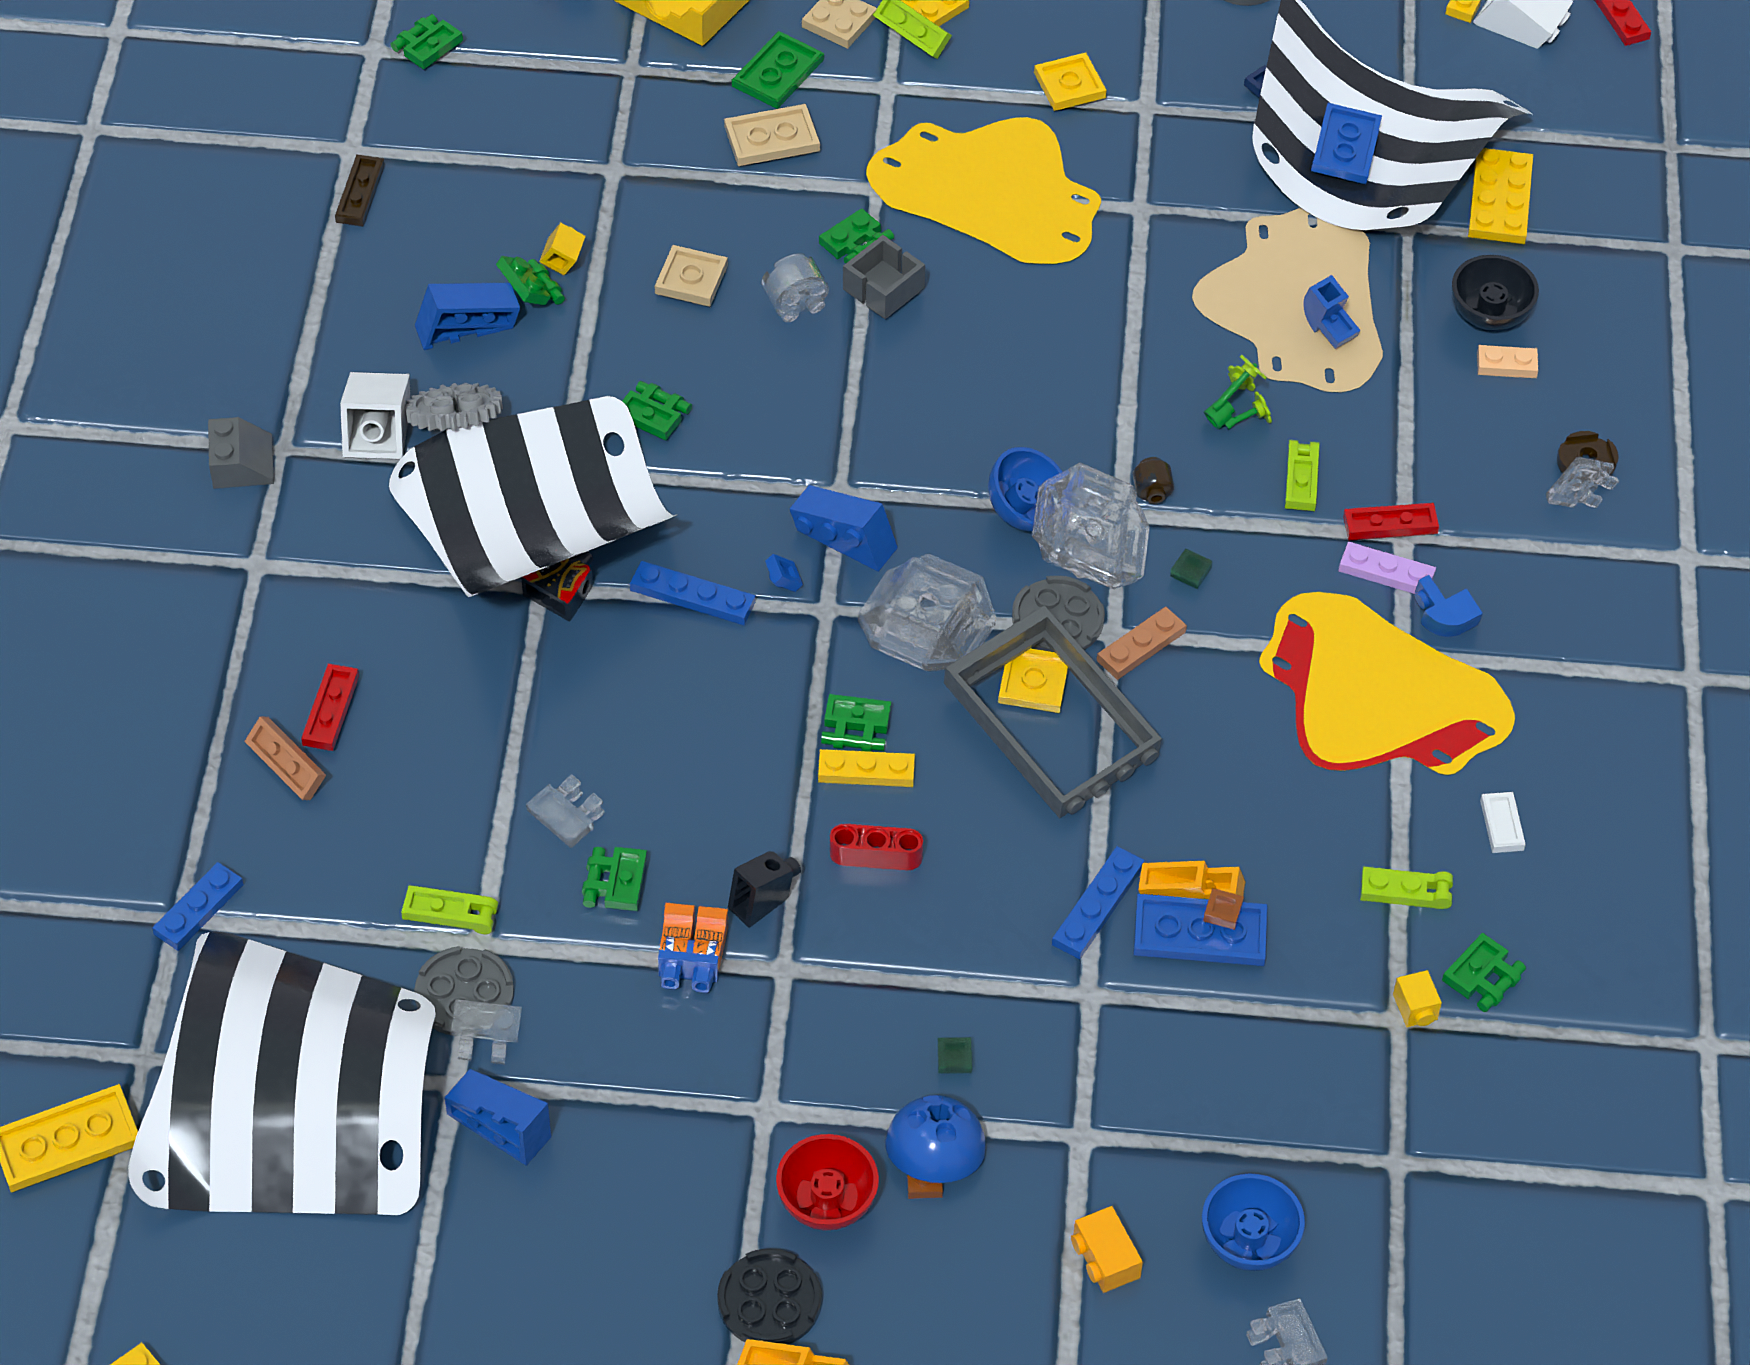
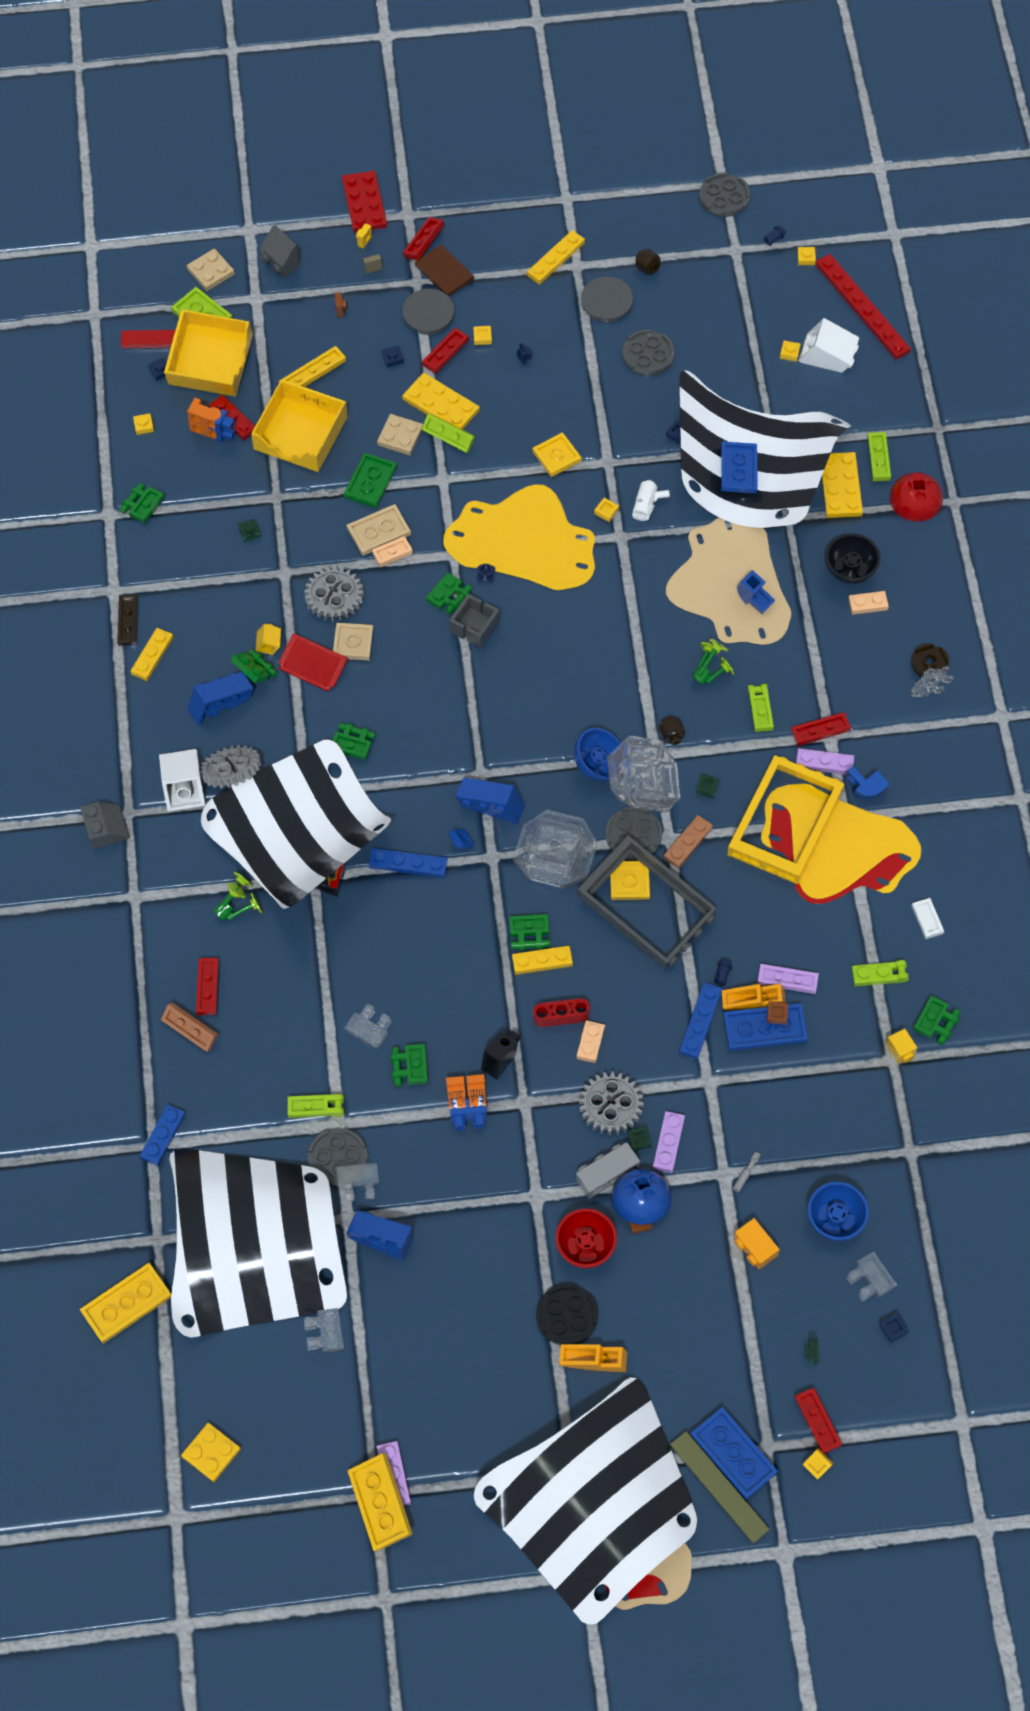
camera: 10 degrees left, 10 degrees up
(377, 1245) = (330, 1331): none -> clear plate
(382, 241) = (152, 654): none -> yellow plate
(388, 603) = (224, 909): none -> plant
(576, 104) = (249, 530): none -> clear green plate
(621, 293) = (312, 662): none -> red window
(680, 206) = (334, 593): none -> light grey gear
(784, 166) = (392, 551): none -> light nougat plate
(795, 287) = (421, 639): clear brick -> none
(888, 1088) = (607, 1169): none -> light grey brick
(913, 899) = (590, 1041): none -> light nougat plate
(920, 219) = (485, 568): none -> dark blue plate
(922, 993) = (623, 1115): none -> light grey gear
(1001, 1071) = (668, 1142): none -> lavender plate
(1117, 1141) = (746, 1173): none -> light grey piece
(1127, 166) = (606, 509): none -> yellow plate
(1154, 831) = (724, 967): none -> dark blue pin
(1190, 163) = (645, 498): none -> white piece
(1256, 866) = (789, 978): none -> lavender plate
(1269, 694) = (768, 861): none -> yellow window
(1569, 166) = (879, 456): none -> lime plate
(1616, 230) = (916, 497): none -> red piece

